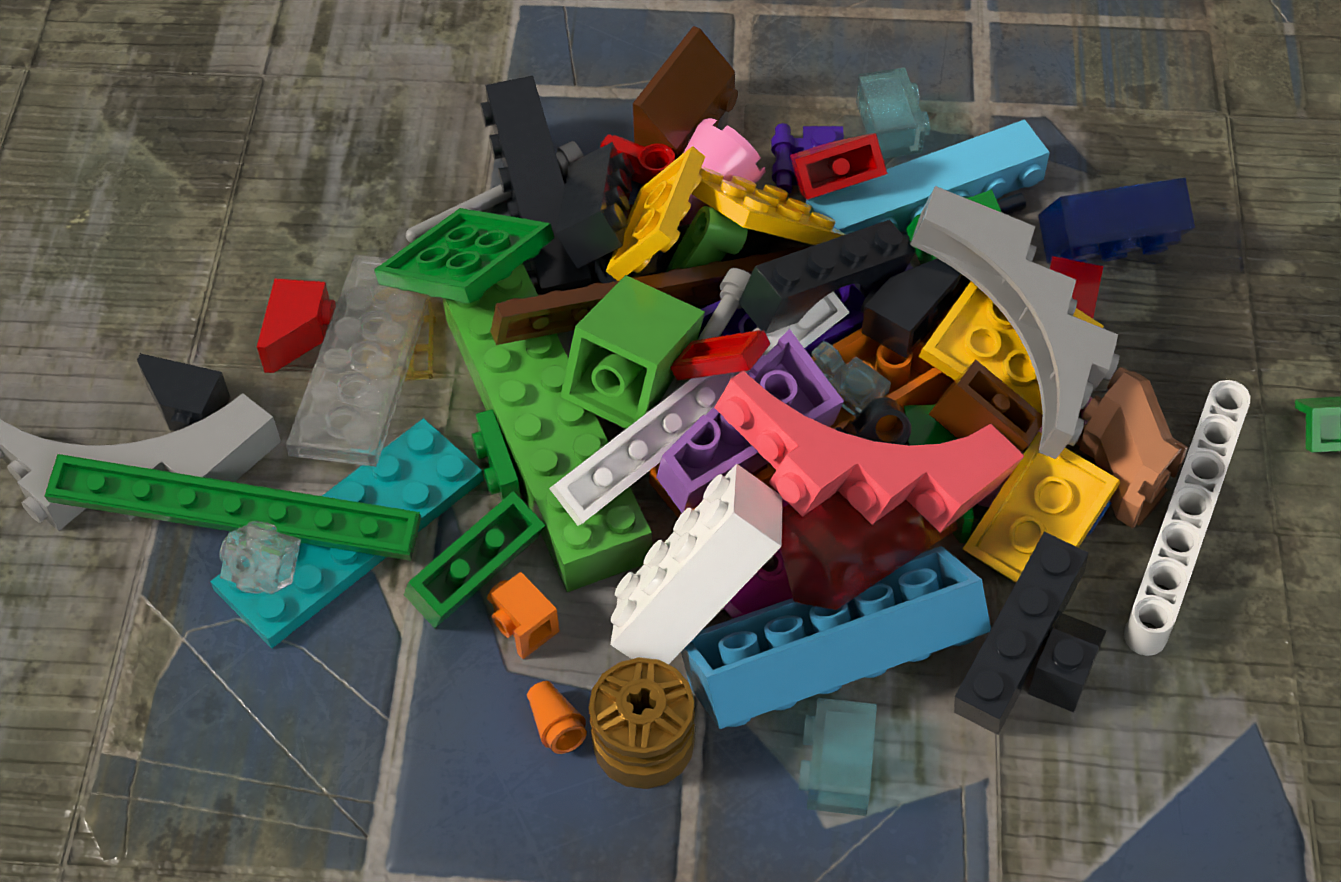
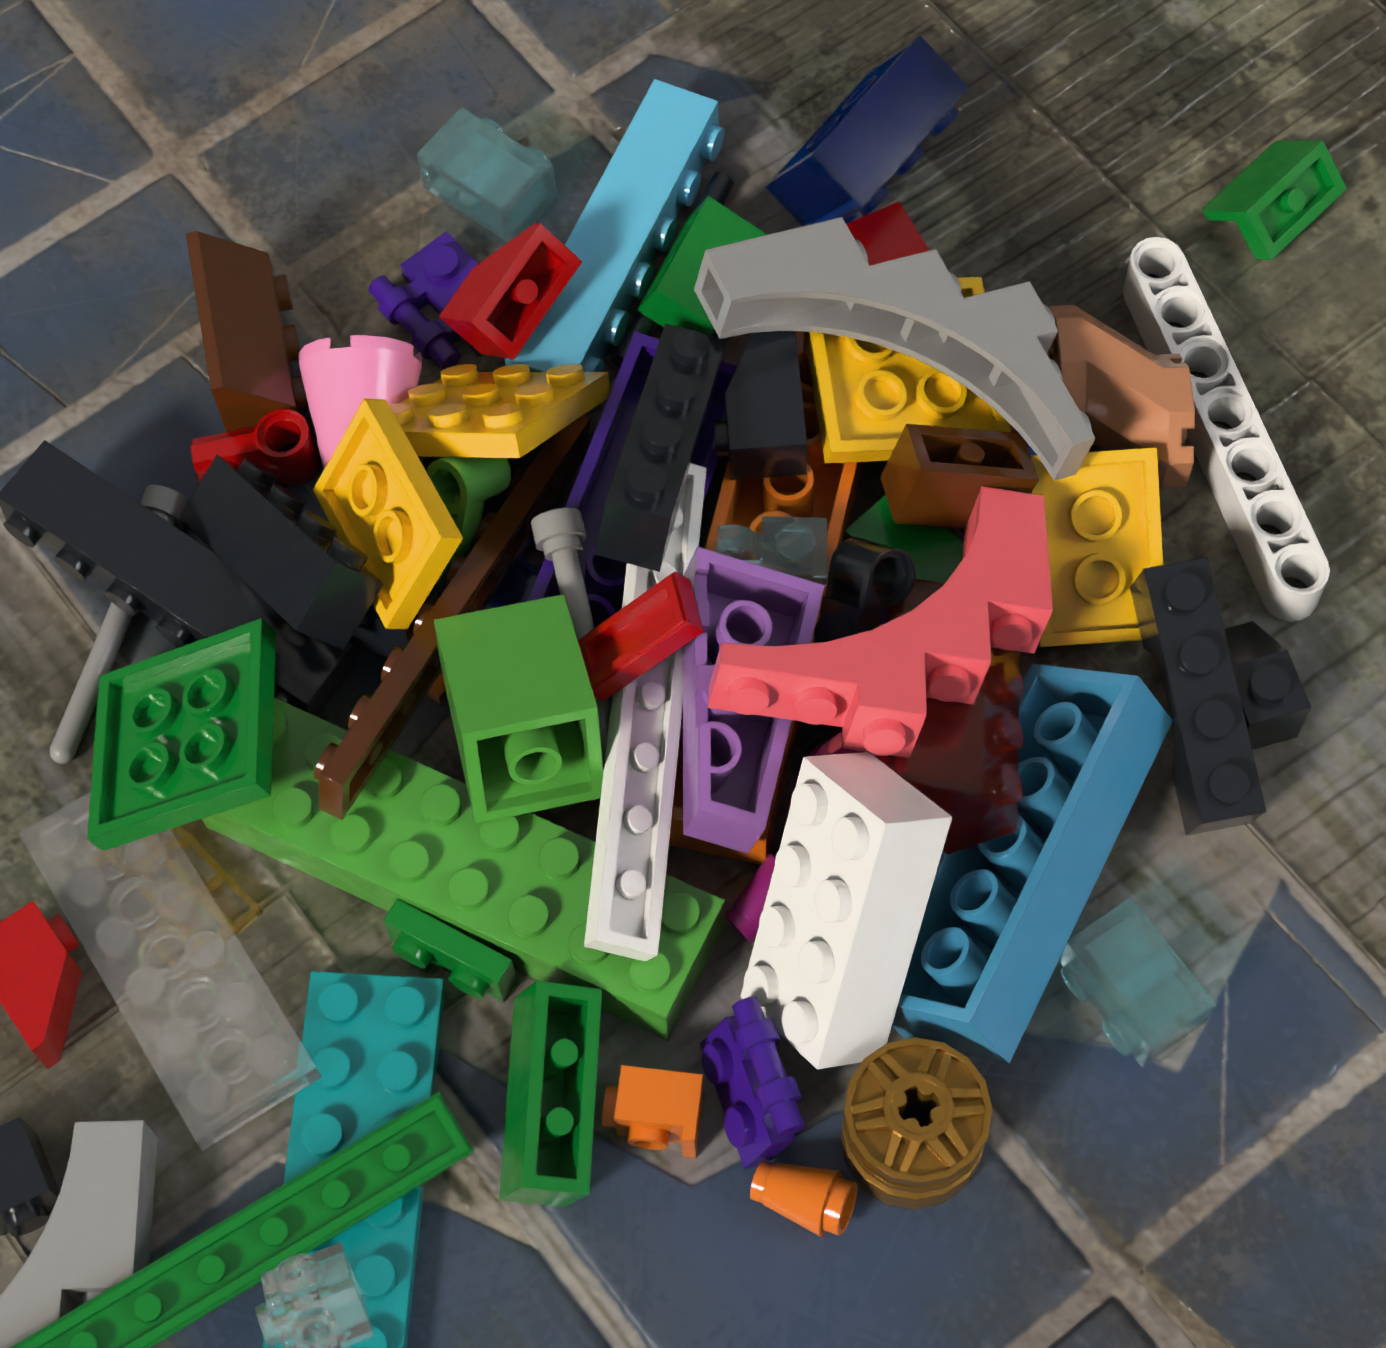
camera: 40 degrees left, 10 degrees up
(582, 623) = (752, 1083): none -> dark purple plate

